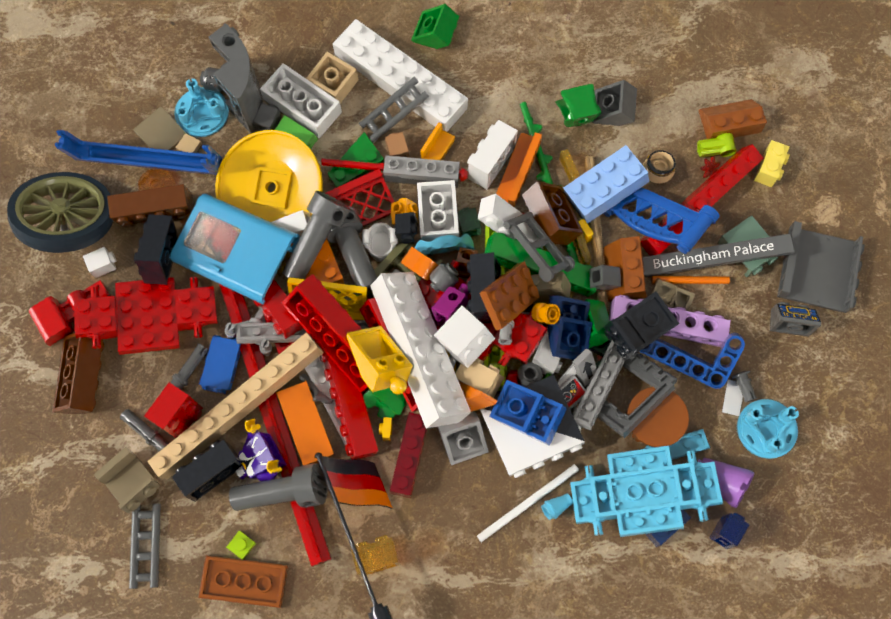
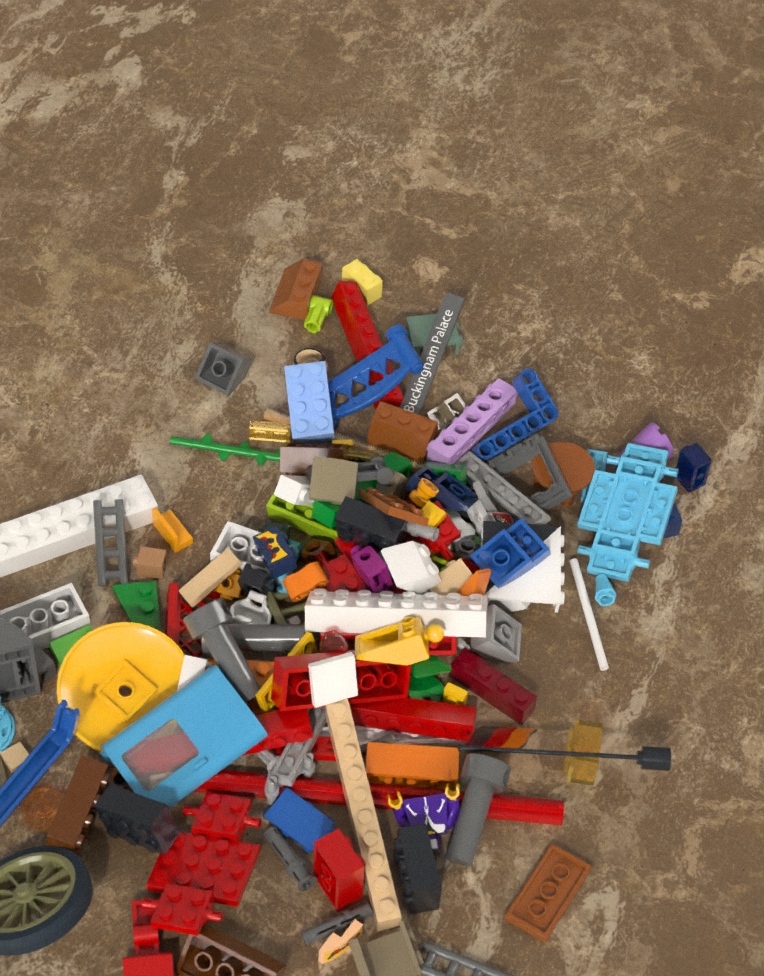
camera: 70 degrees left, 20 degrees down
(100, 262) = (107, 896): white brick -> none
(127, 440) = (338, 945): none -> light nougat slope
(241, 545) = (509, 879): lime plate -> none
(318, 327) = (333, 679): none -> white tile
(334, 76) = (31, 578): tan brick -> none
(361, 312) = (333, 643): none -> clear red brick
(395, 194) = (210, 577): none -> tan tile
(407, 169) = (187, 558): light grey piece -> none
(434, 227) = (275, 552): none -> dark blue brick
(436, 27) = (33, 473): green slope -> none
(443, 277) = (336, 562): dark grey head -> none
(492, 154) = (216, 482): white brick -> none
(512, 236) = (333, 480): none -> dark tan slope
(519, 167) = (242, 470): orange panel -> none
(524, 329) = (434, 514): none -> yellow plate
(578, 105) = (209, 392): green piece -> none
(605, 277) = (404, 446): dark grey brick -> none
(640, 325) = (472, 438): black bracket -> none
(694, 279) = (441, 389): orange bar -> none
(710, 167) = (335, 328): clear red plant -> none
(732, 399) = (570, 417): white sticker -> none
(745, 385) = (561, 399): dark grey pin -> none
(768, 428) = (610, 403): medium azure piece -> none
(794, 319) = (522, 335): dark grey slope -> none
(821, 270) = (490, 297): dark grey panel -> none

